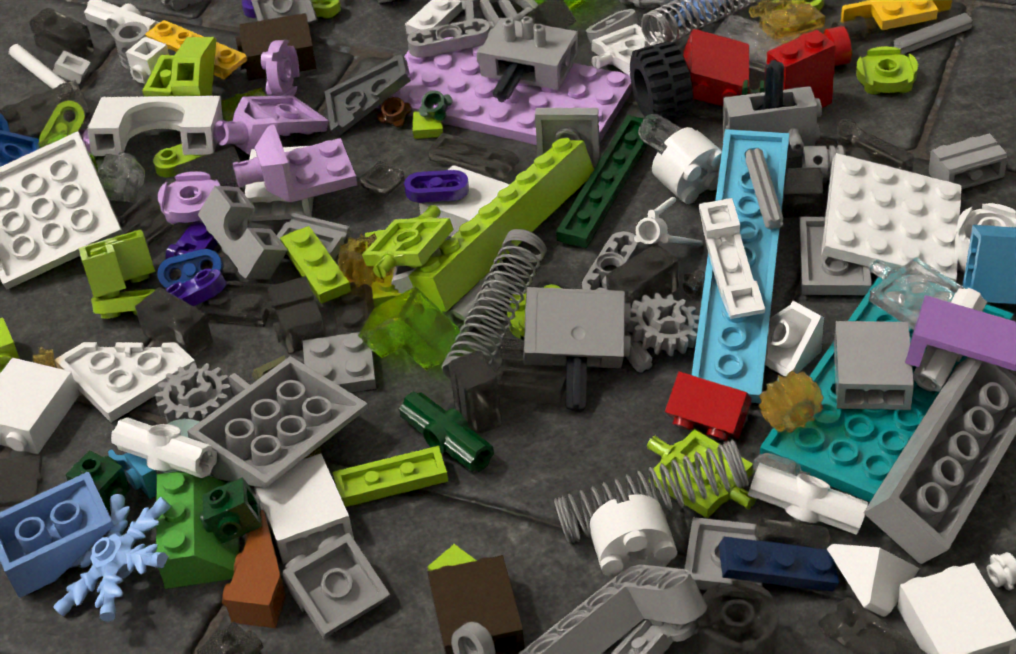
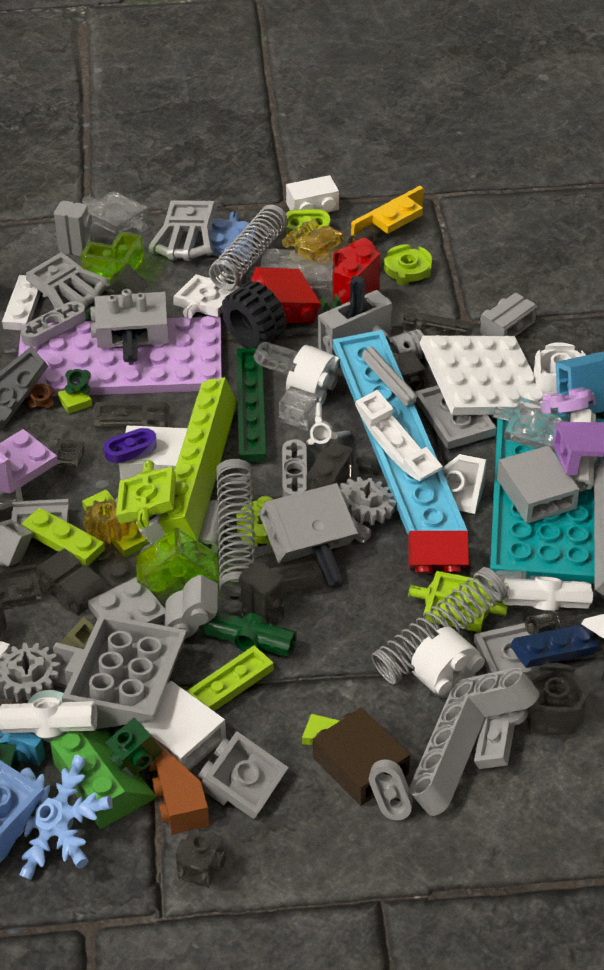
camera: 30 degrees left, 0 degrees up
(393, 380) = (192, 605): none -> light grey brick
(568, 123) = (200, 369): light grey plate -> none
(612, 23) = (177, 279): light grey plate -> none
(652, 192) = (298, 408): none -> clear brick
(791, 401) = (501, 527): clear yellow gear -> none
(933, 33) = (424, 226): light grey axle -> none
(966, 278) = (576, 399): none -> lavender plate

